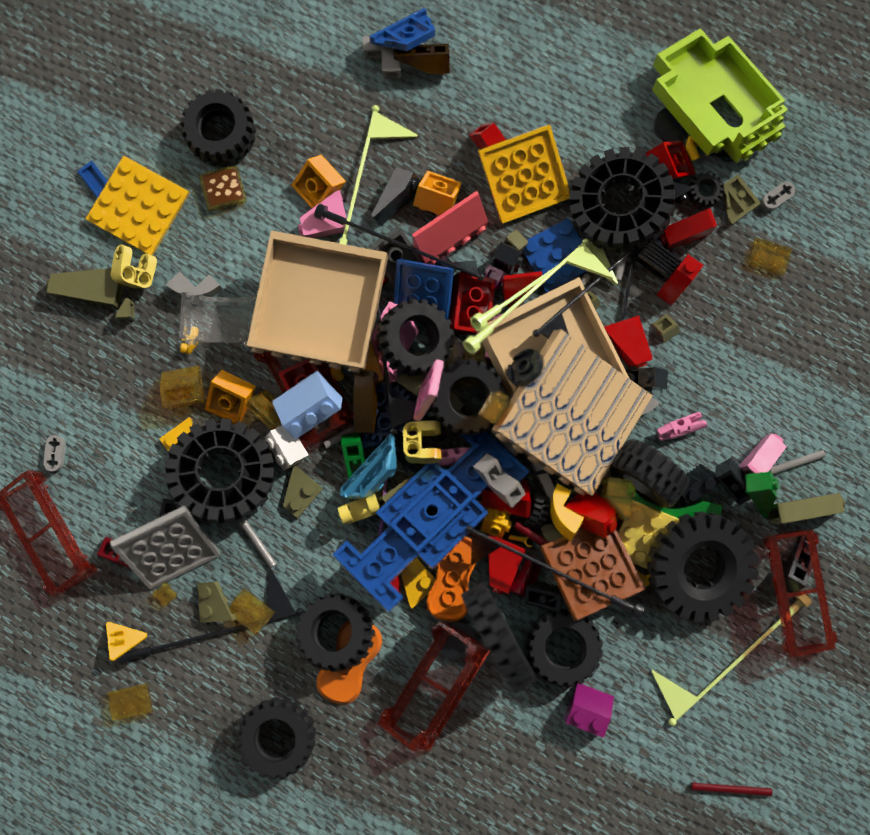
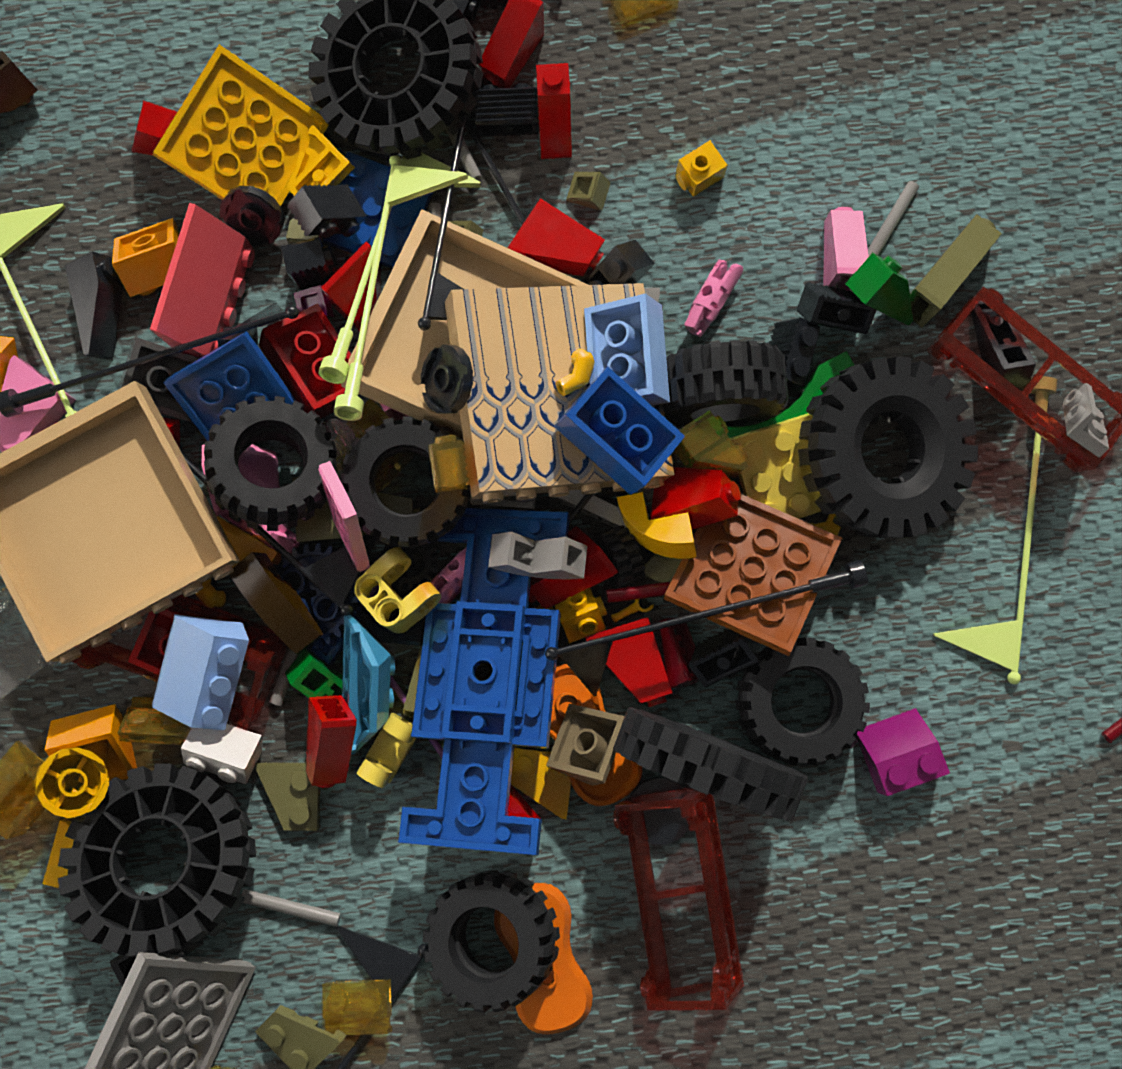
camera: 40 degrees left, 0 degrees up
(212, 406) = (69, 780): none -> yellow cylinder
(337, 483) = (329, 740): none -> red slope
(449, 582) = (585, 744): none -> dark tan slope
(500, 213) = (253, 214): none -> black tile
(535, 242) = (327, 210): none -> black brick
(546, 217) = (319, 164): none -> yellow wing
(583, 456) = (619, 431): none -> blue slope
(586, 416) = (581, 374): none -> yellow arm
(616, 423) = (631, 342): none -> light blue slope
(726, 362) = (700, 169): none -> yellow brick
(805, 632) = (1085, 421): none -> light grey bracket

